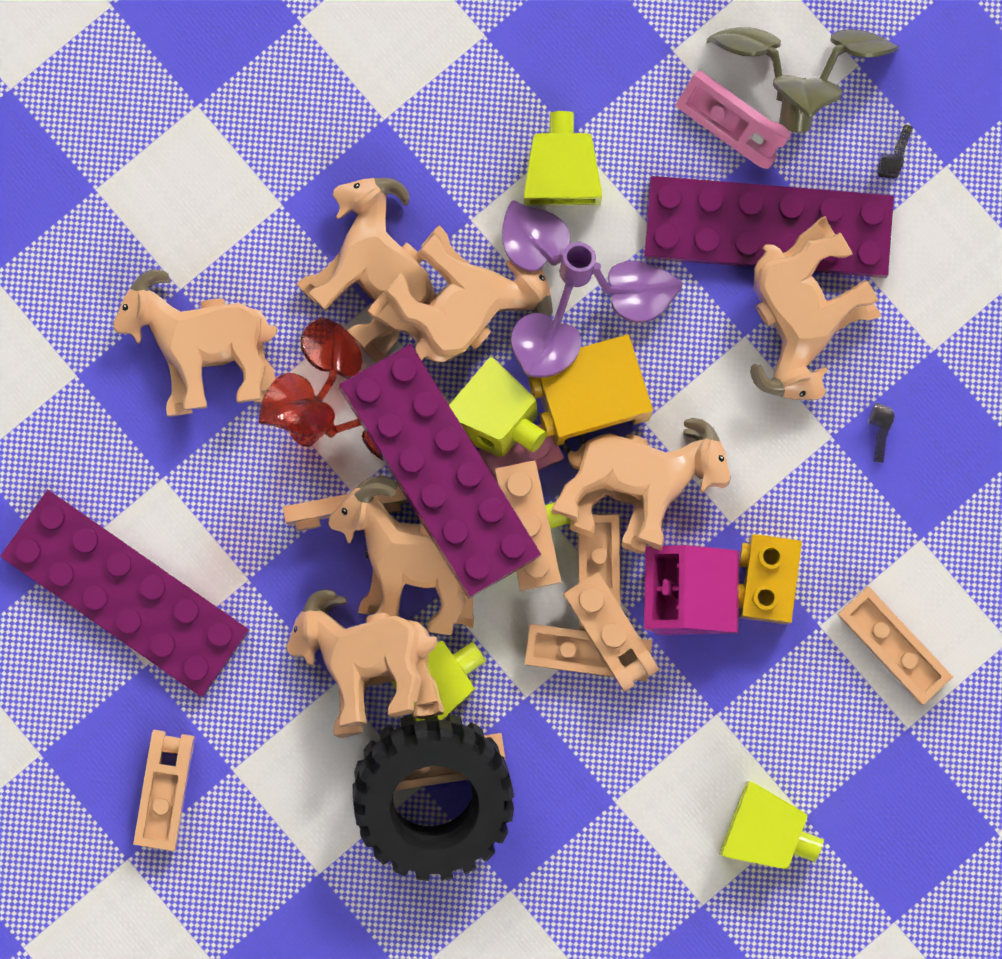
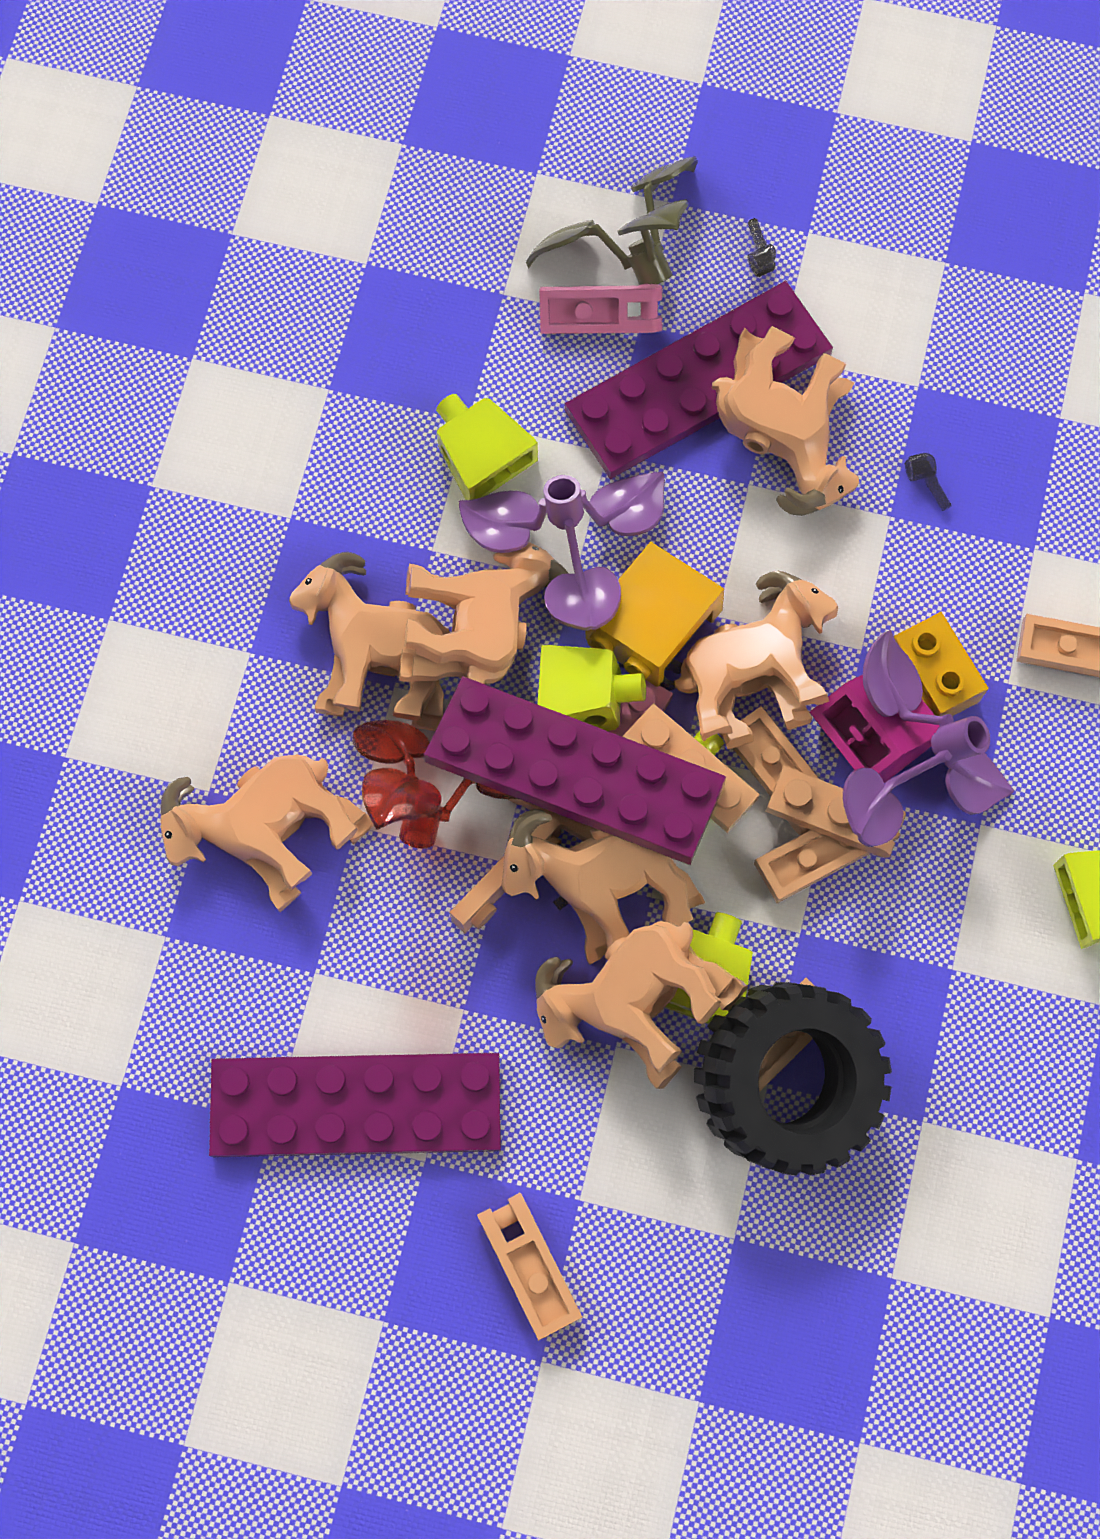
camera: 35 degrees left, 10 degrees down
(734, 675) = (972, 777): none -> medium lavender plant

